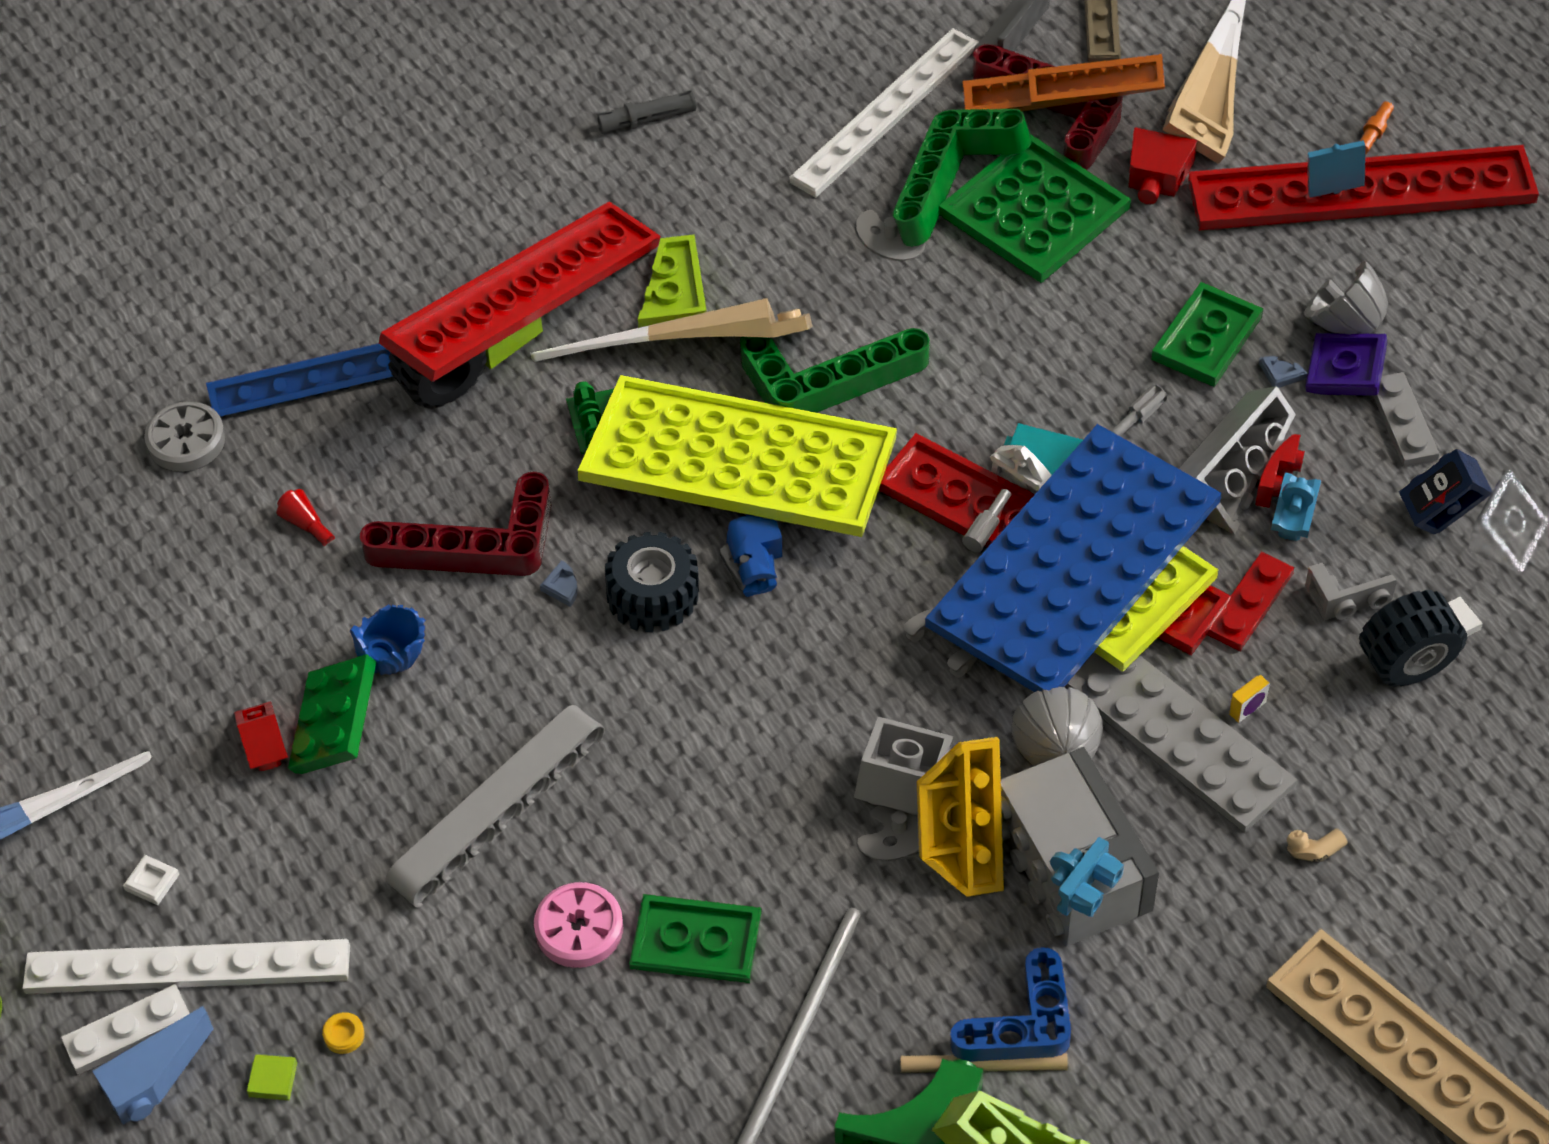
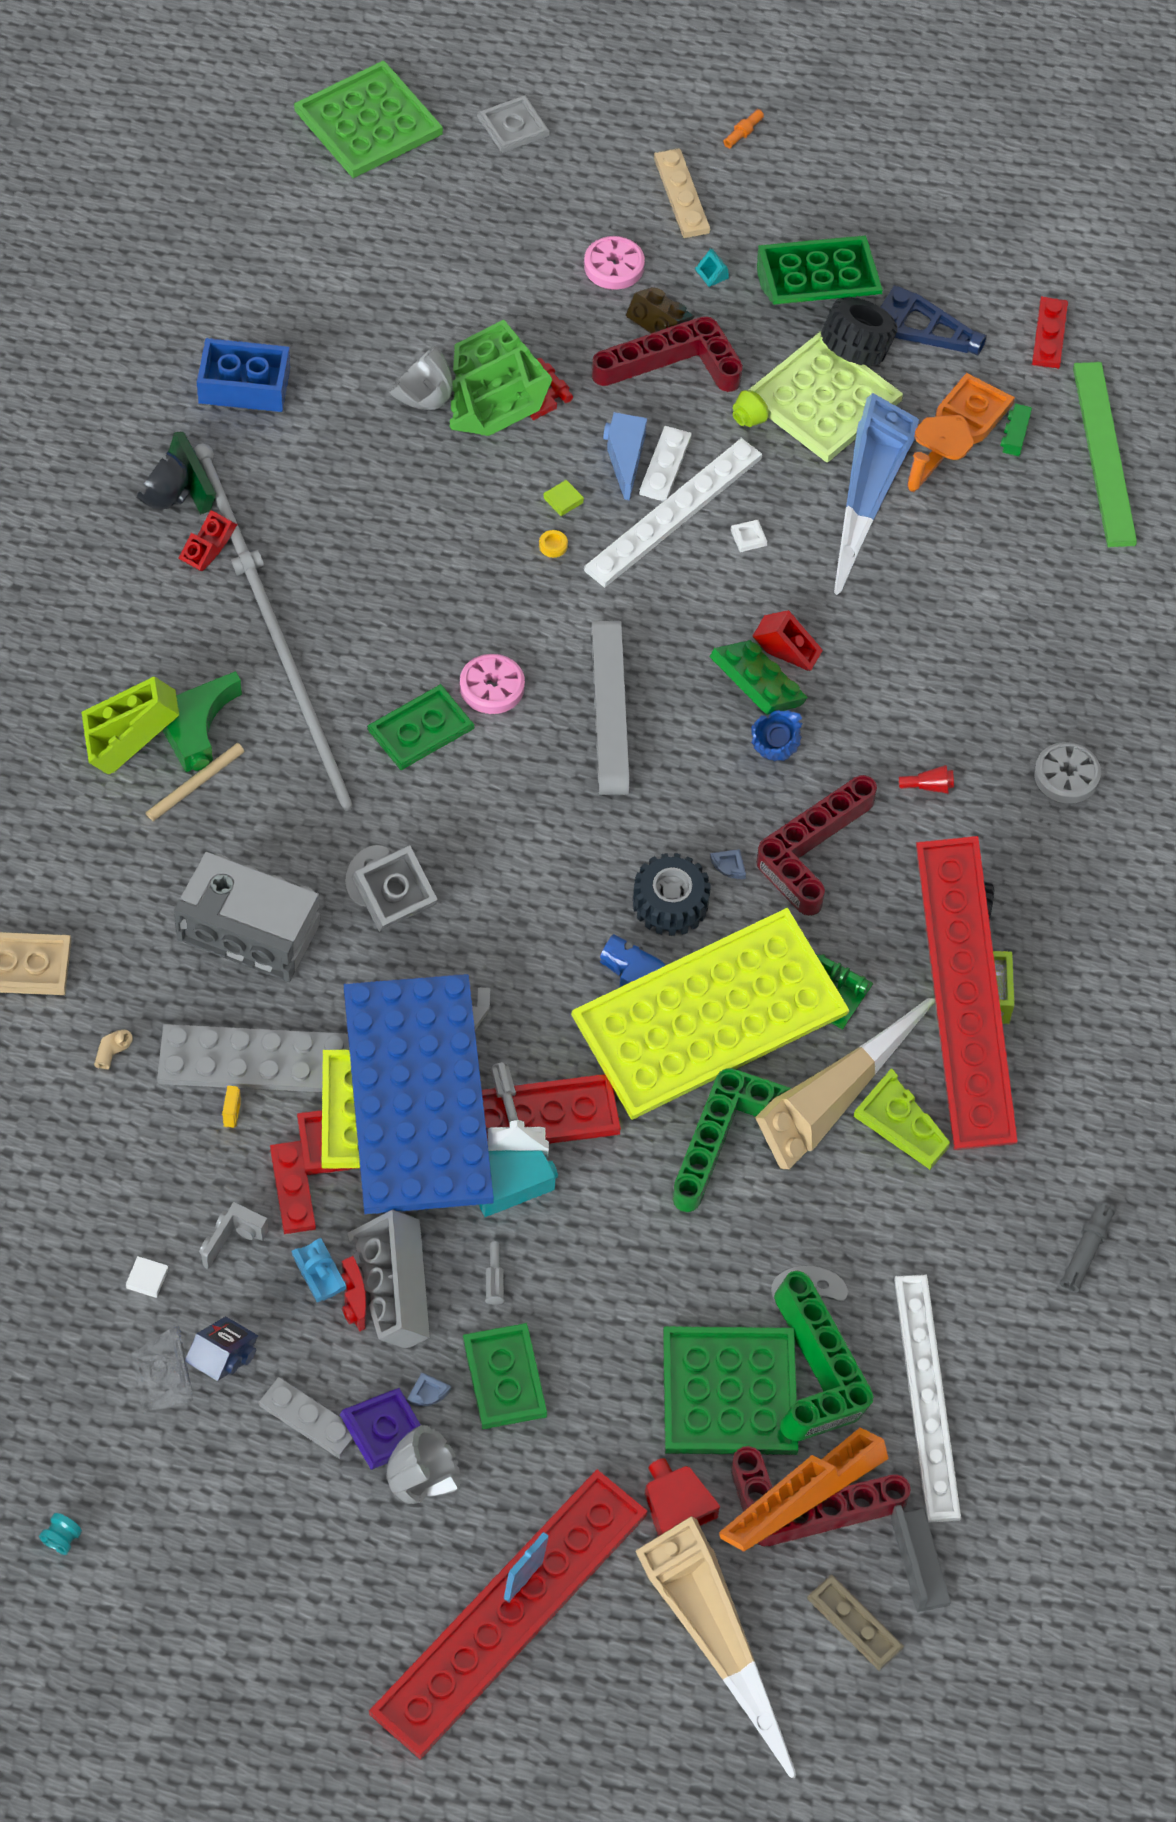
camera: 130 degrees right, 5 degrees up
(299, 379) = (1041, 868): blue plate -> none
(963, 817) = (327, 871): yellow wedge -> none
(1031, 1028) = (182, 809): blue beam -> none
(1056, 724) = (319, 977): light grey hair -> none
(1078, 877) = (206, 872): dark azure hips -> none
(1376, 125) = (553, 1688): orange bar -> none
(1412, 638) = (153, 1209): black wheel -> none

